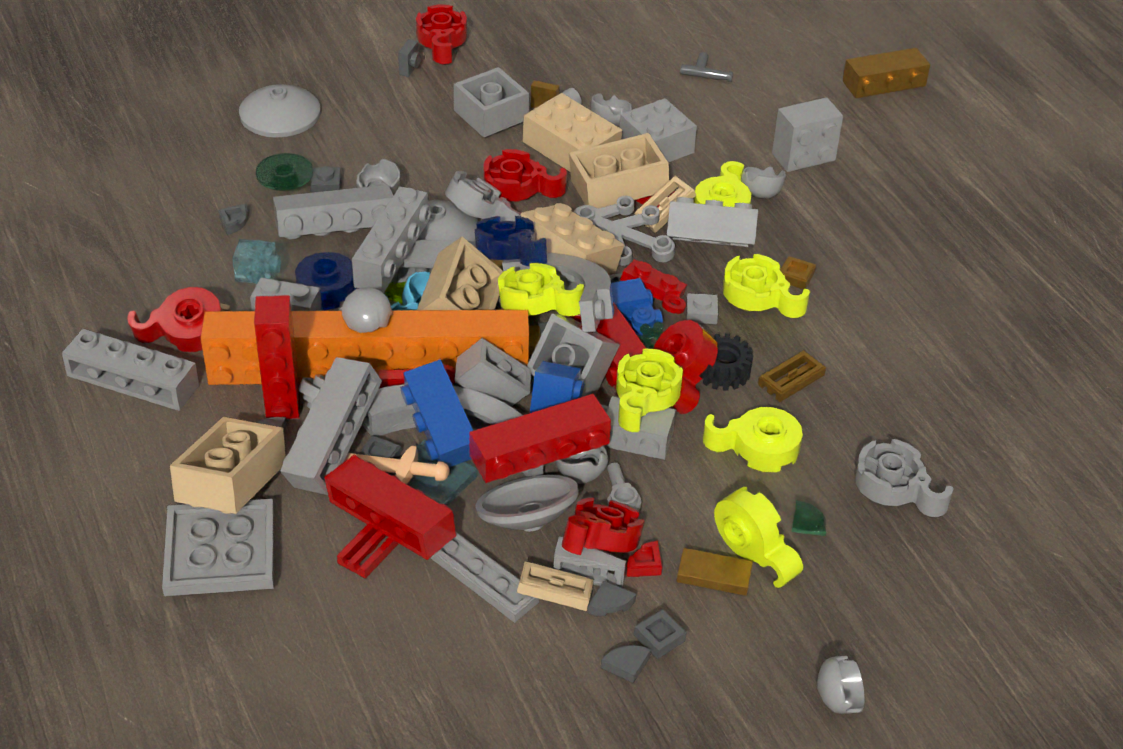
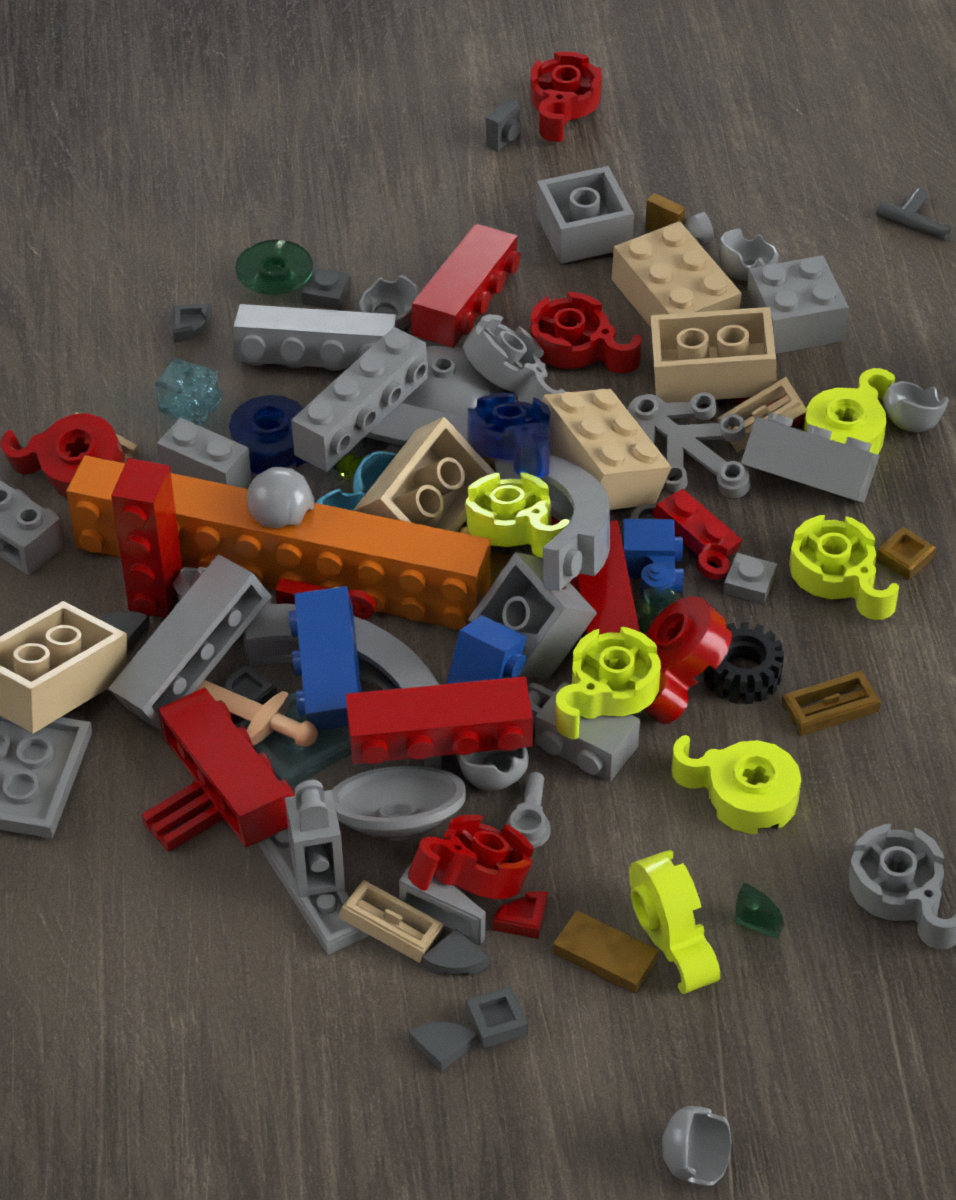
camera: 20 degrees right, 5 degrees up
(279, 110) = (307, 173): light grey dish -> none
(429, 157) = (464, 285): none -> brick
(485, 538) = (315, 840): none -> light grey brick
(493, 373) = (418, 616): light grey brick -> none

